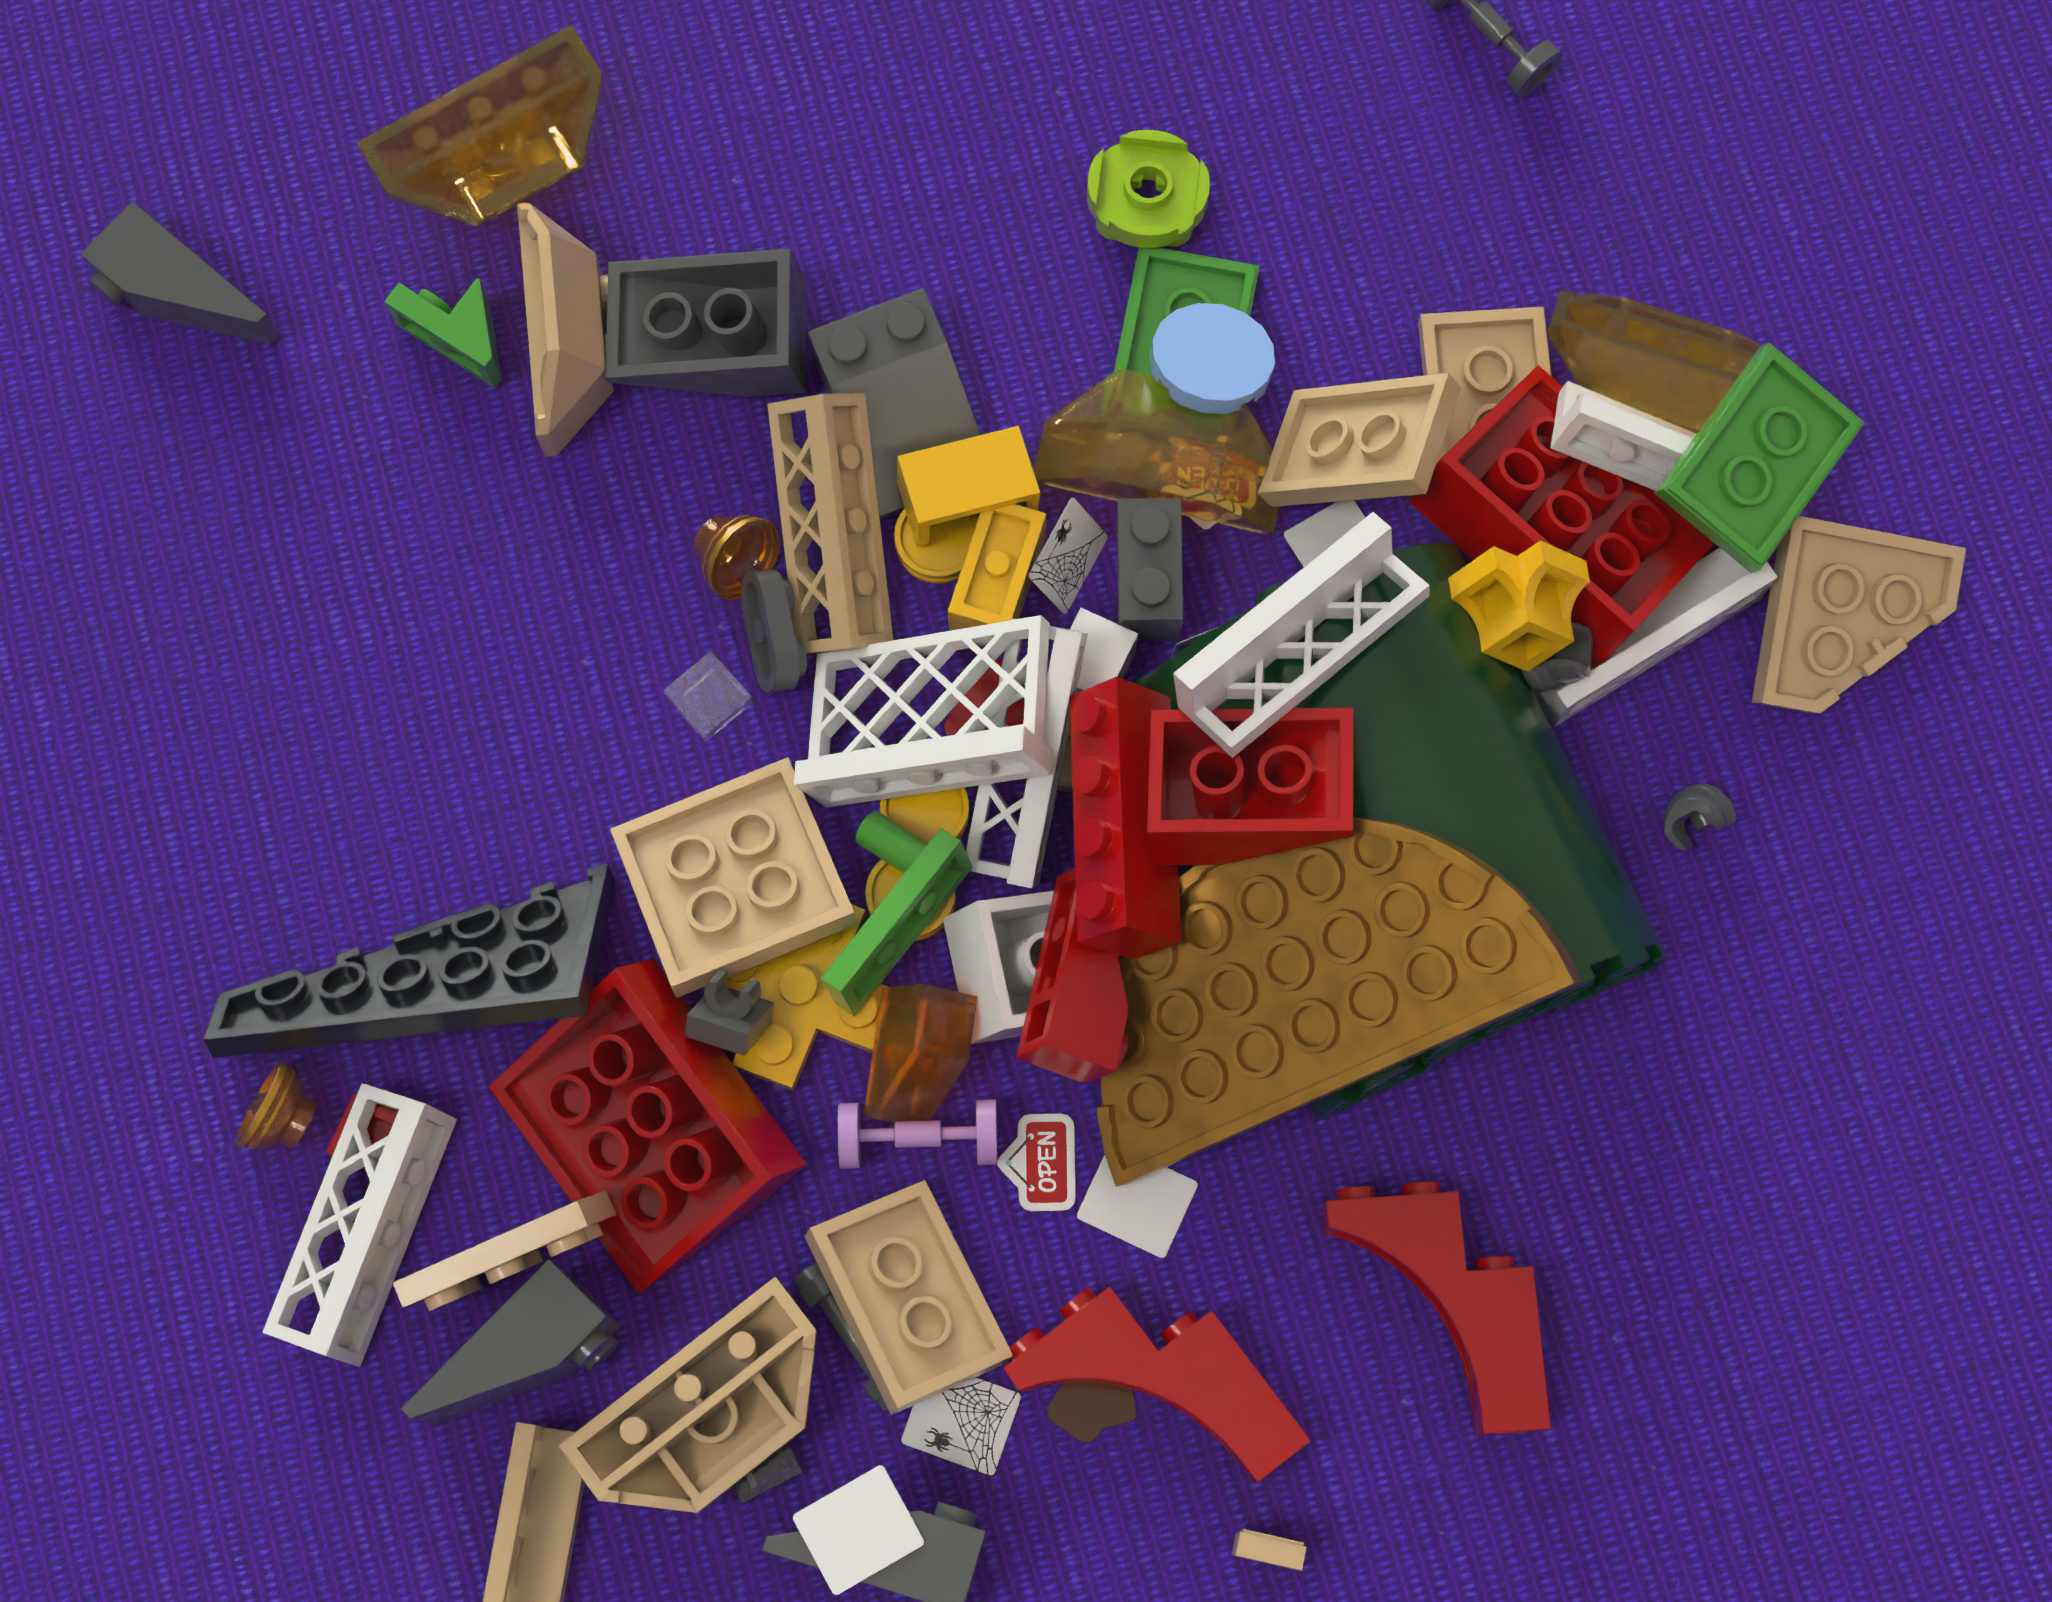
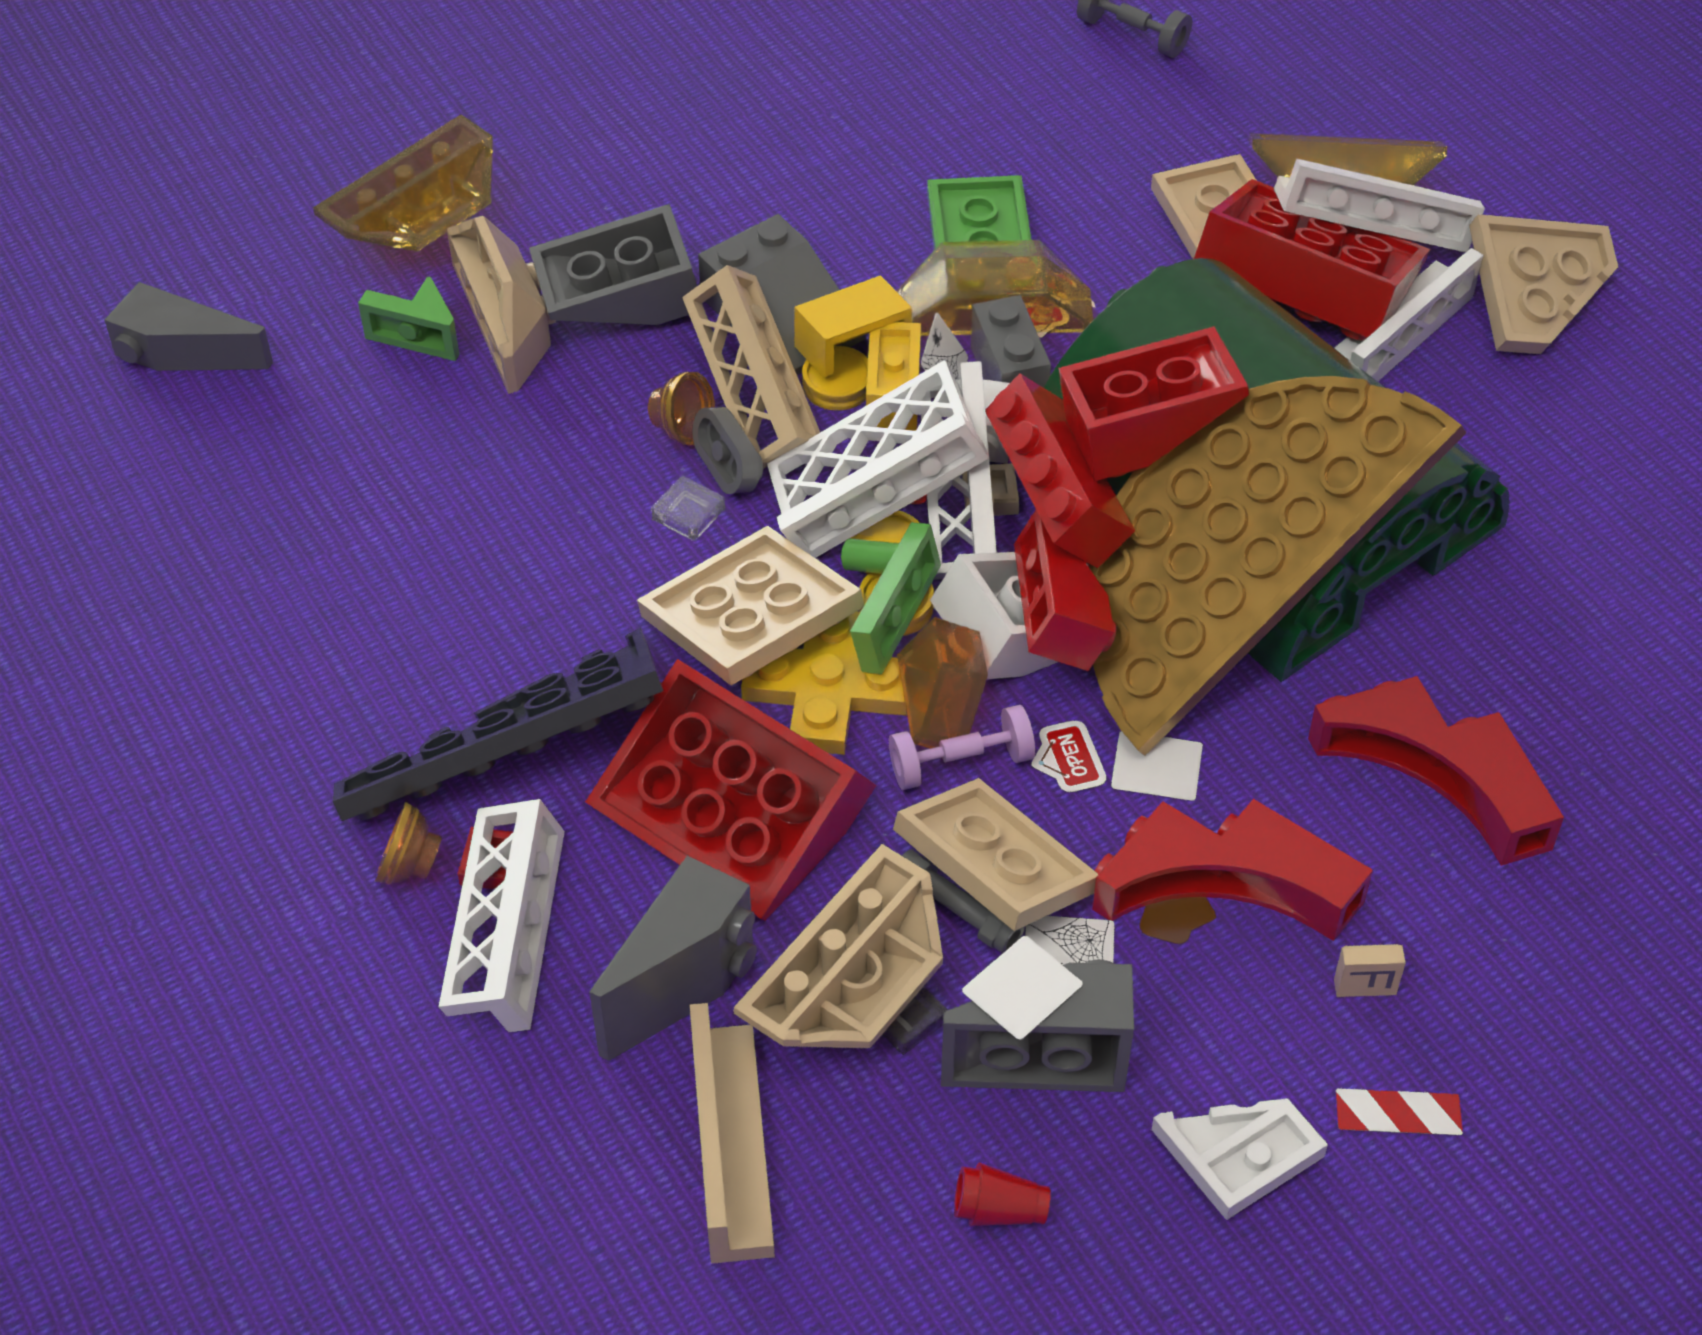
camera: 15 degrees left, 25 degrees down
(506, 1253) = (622, 891): tan plate -> none
(728, 1016) = (777, 684): dark grey tile -> none
(1141, 220) = (922, 148): lime plate -> none
(1212, 358) = (1010, 219): light blue tile -> none
(1284, 618) = (1140, 292): white fence -> none
(1360, 440) = (1141, 236): tan plate -> none
(1521, 601) = (1305, 277): yellow brick -> none
(1566, 665) = (1343, 325): dark grey arm -> none
(1703, 806) = (1484, 426): dark grey arm -> none
(1759, 458) = (1439, 179): bright green tile -> none

